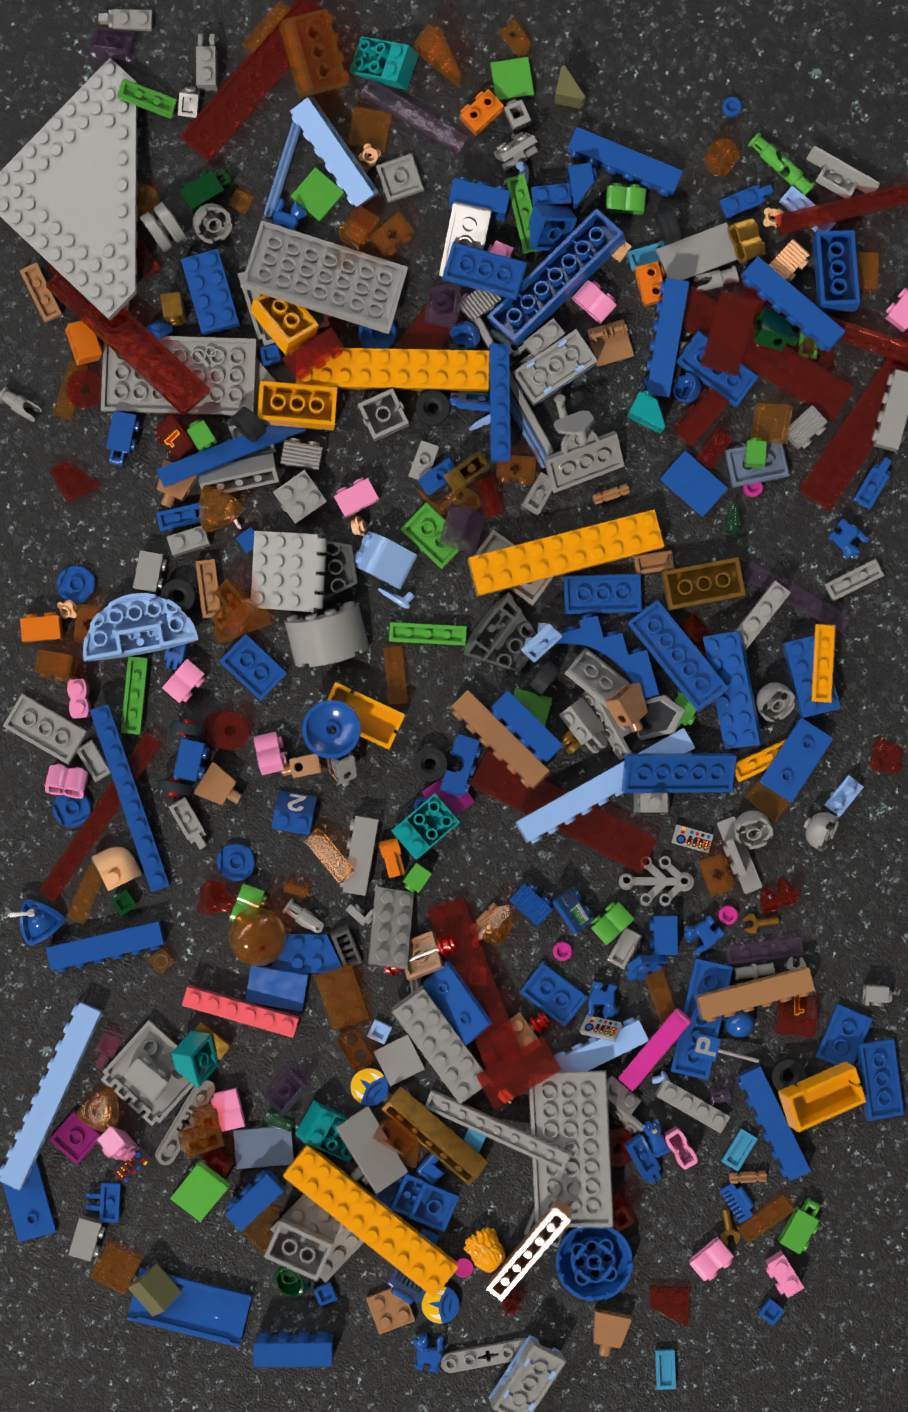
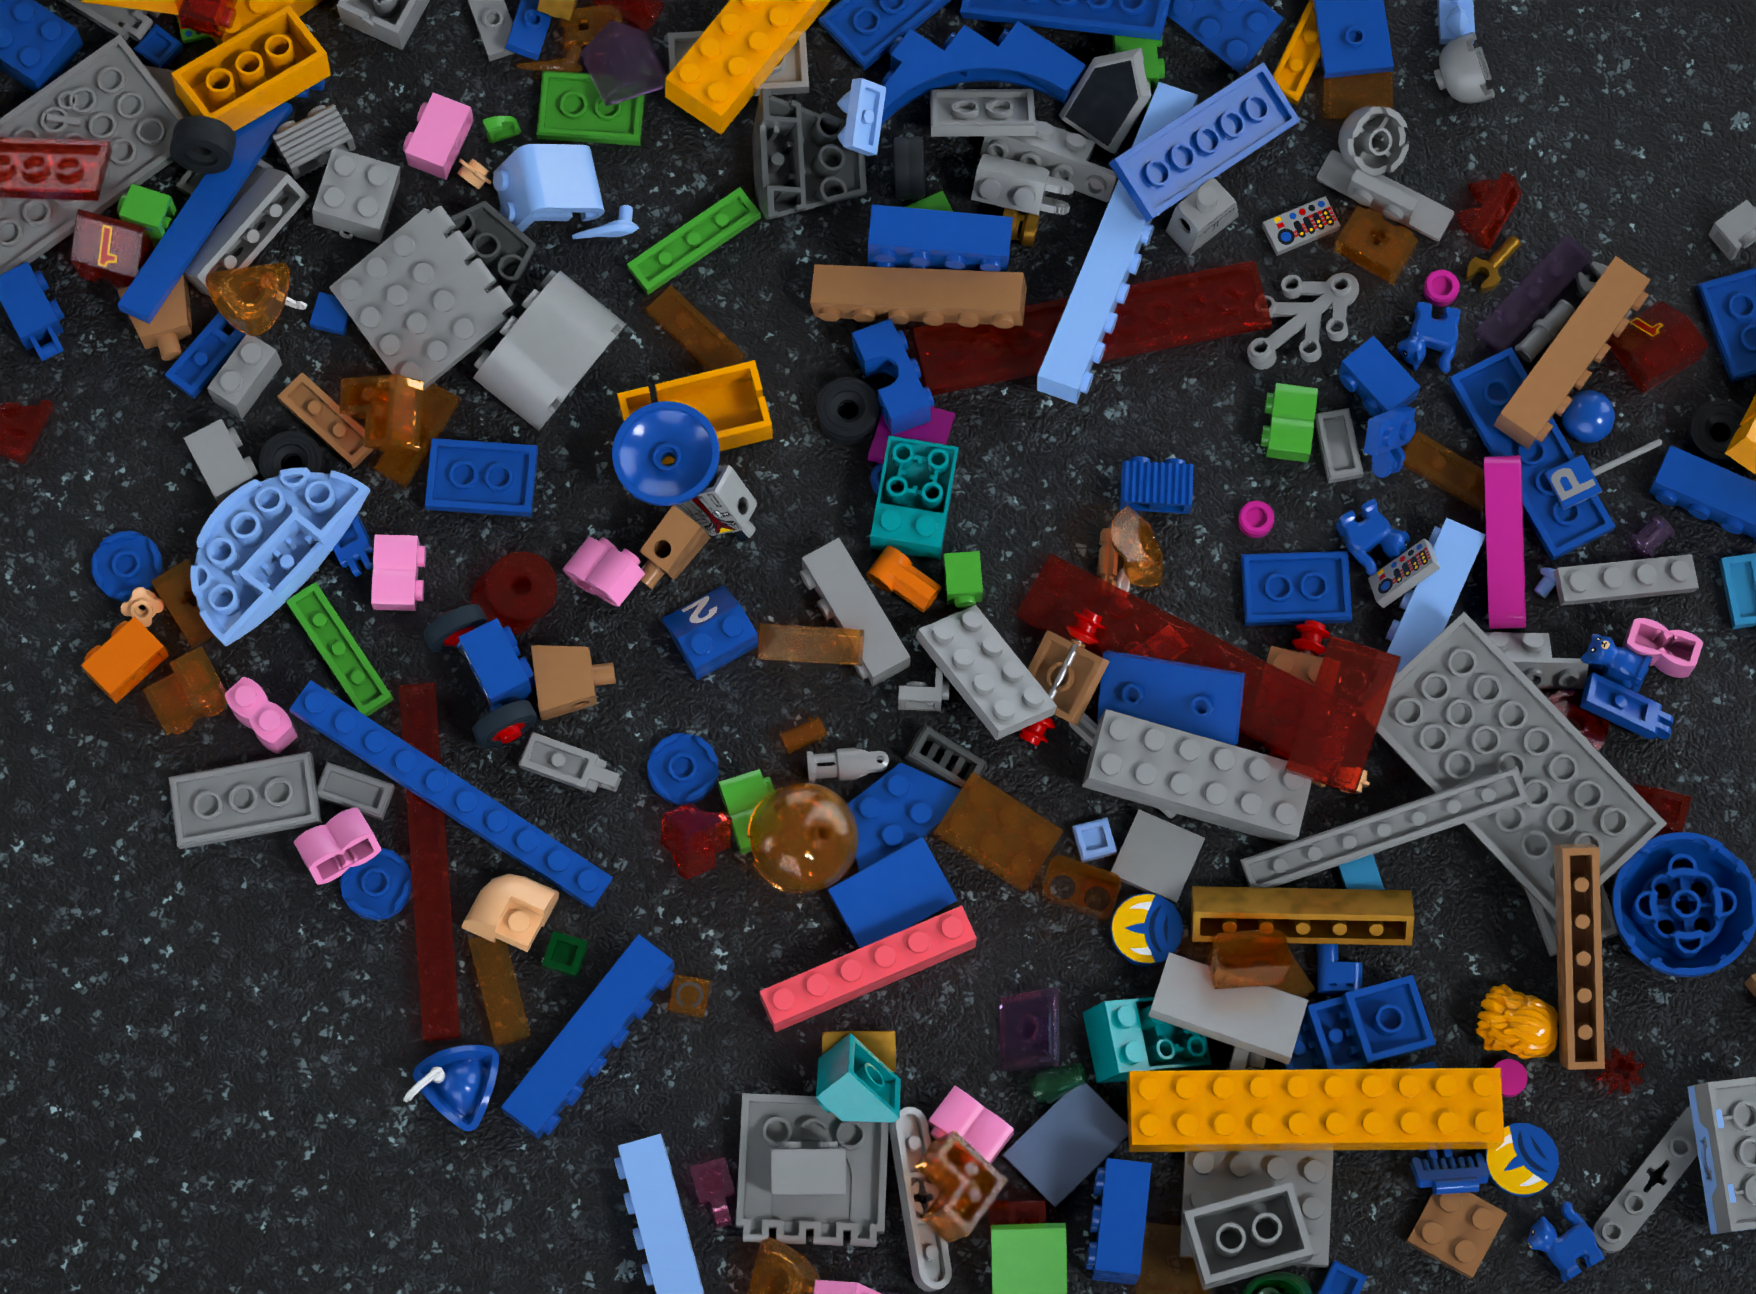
camera: 40 degrees left, 15 degrees down
(387, 514) = (501, 128): none -> bright green tile
(572, 911) = (1221, 448): blue slope -> none
(628, 706) = (1059, 110): medium nougat torso -> none

